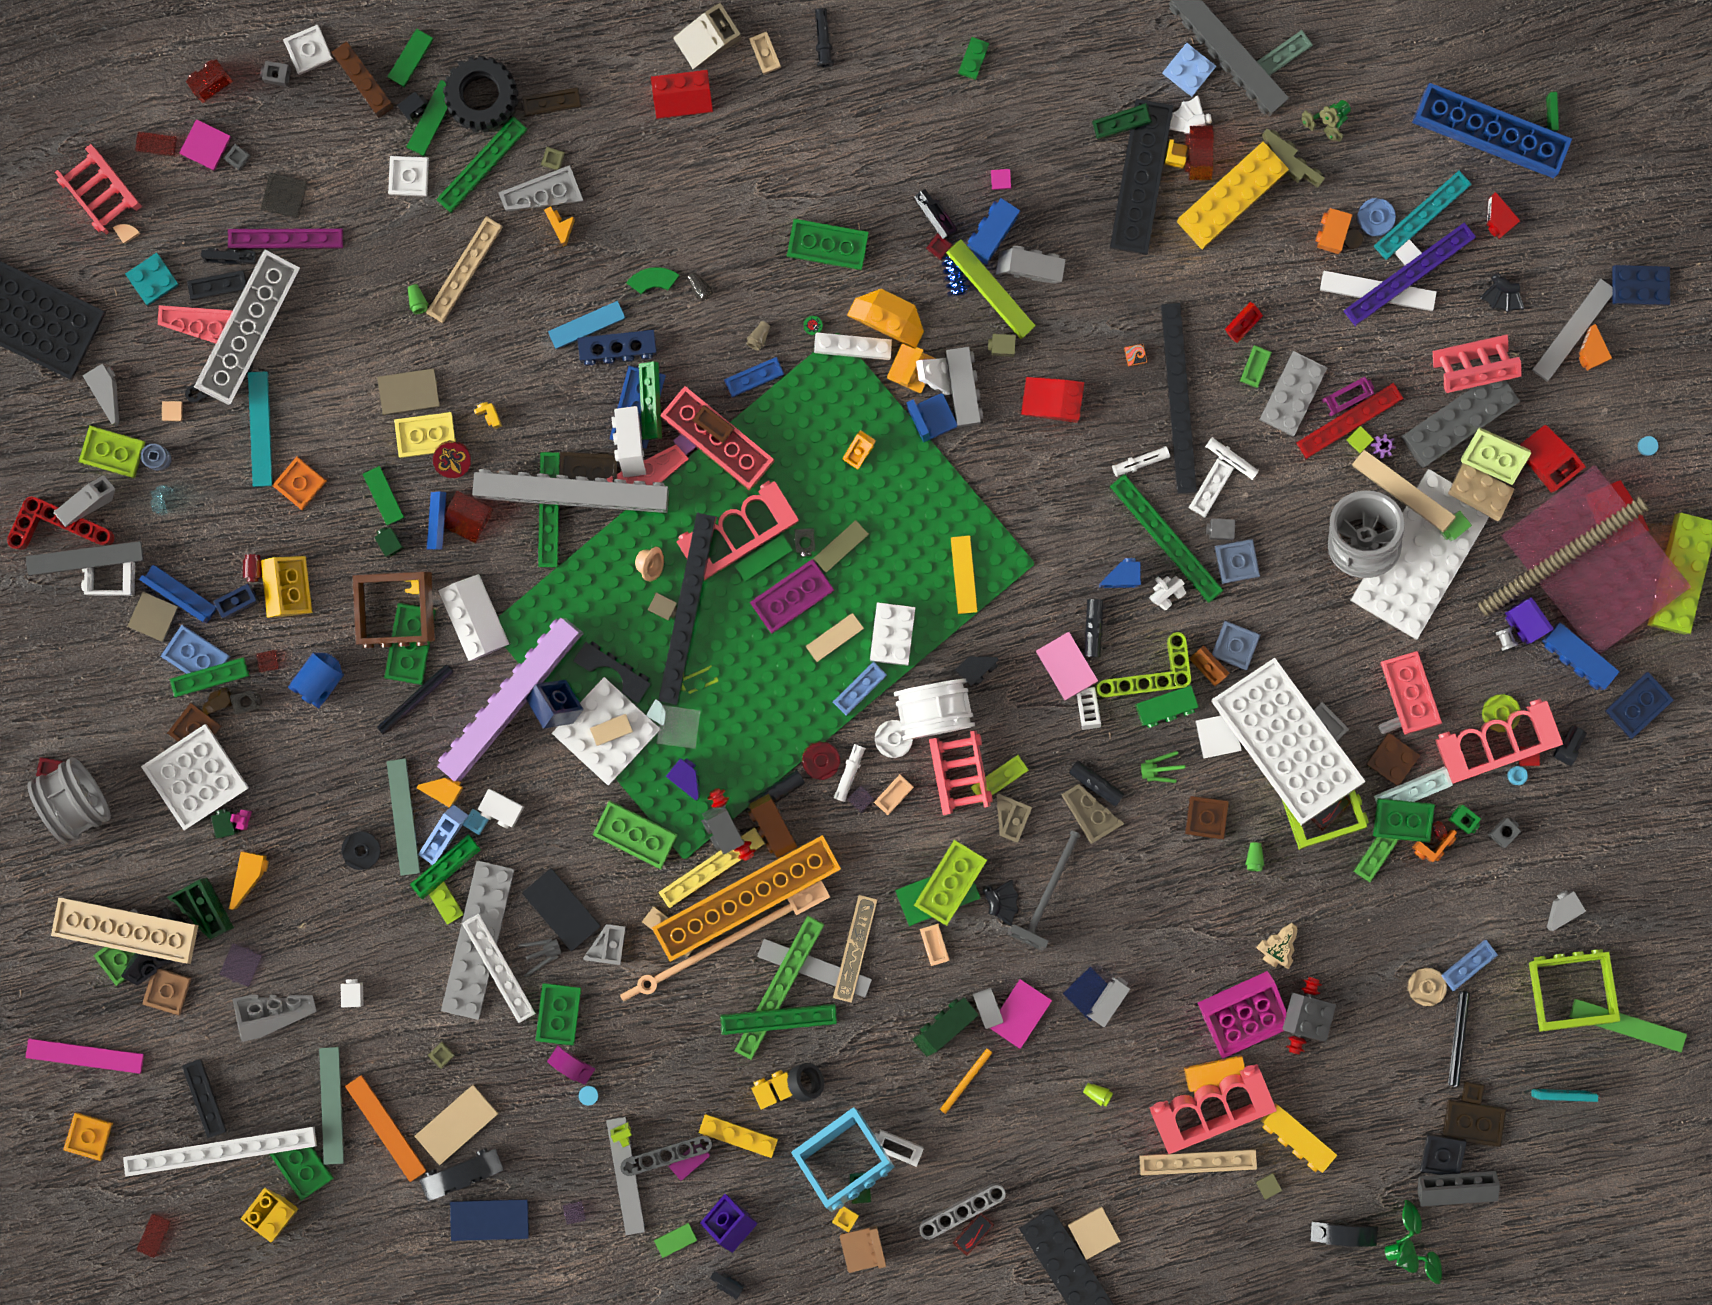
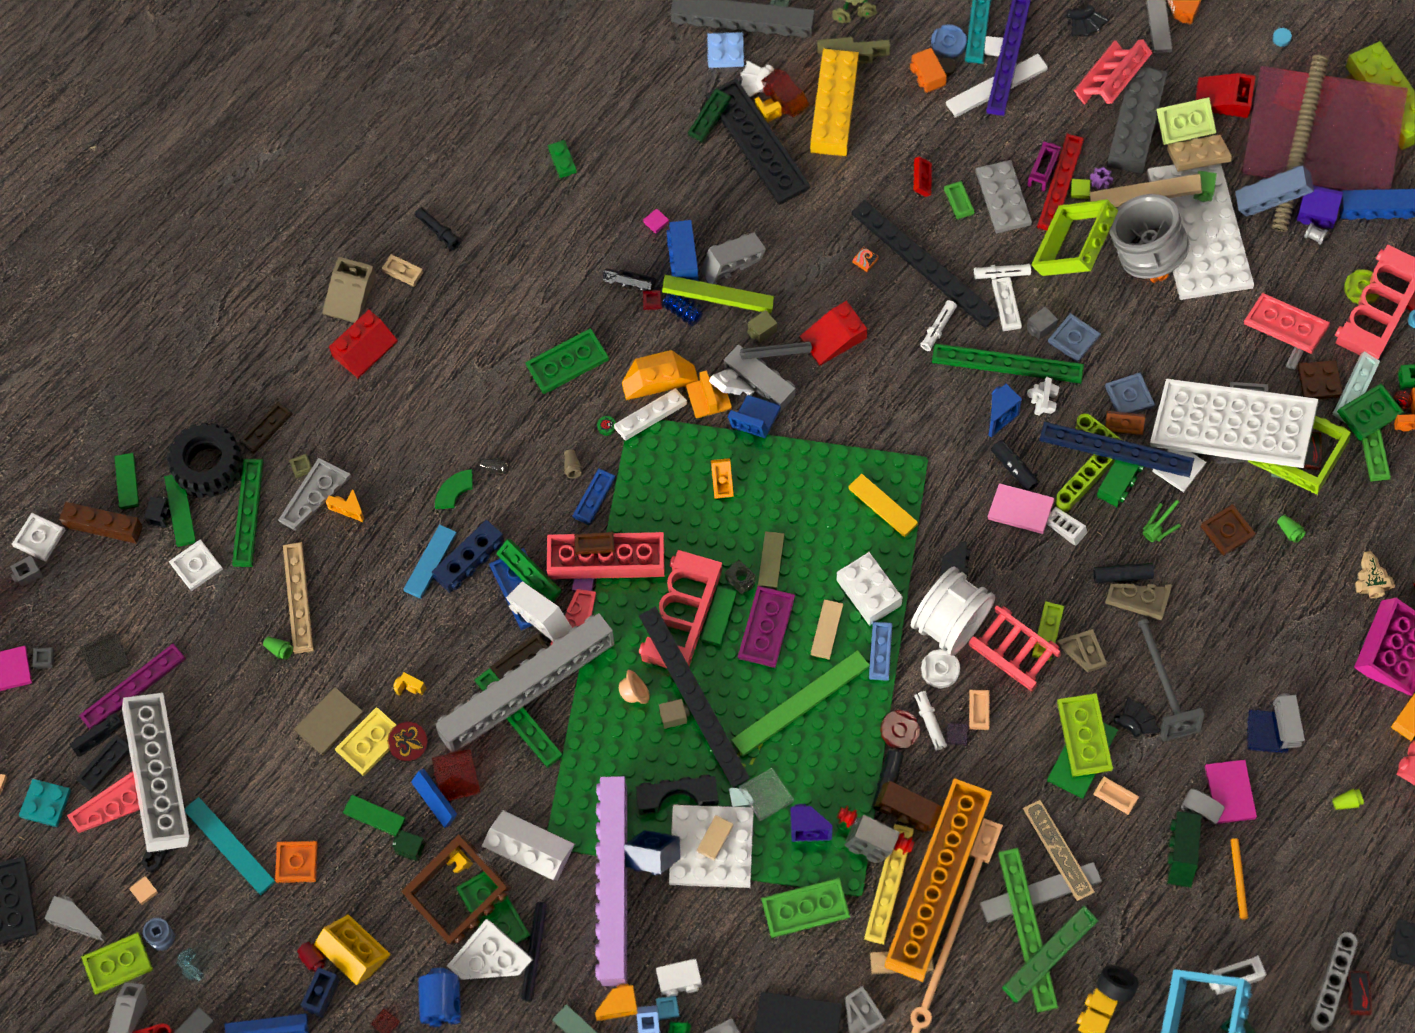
camera: 35 degrees left, 20 degrees down
(379, 676) = (489, 955): none -> white plate
(764, 678) = (800, 703): none -> bright green tile
(993, 376) = (775, 350): none -> dark grey axle
(1179, 685) = (1117, 449): none -> dark blue tile
(1299, 465) = (1045, 257): none -> lime window
(1503, 579) = (1274, 191): none -> sand blue brick

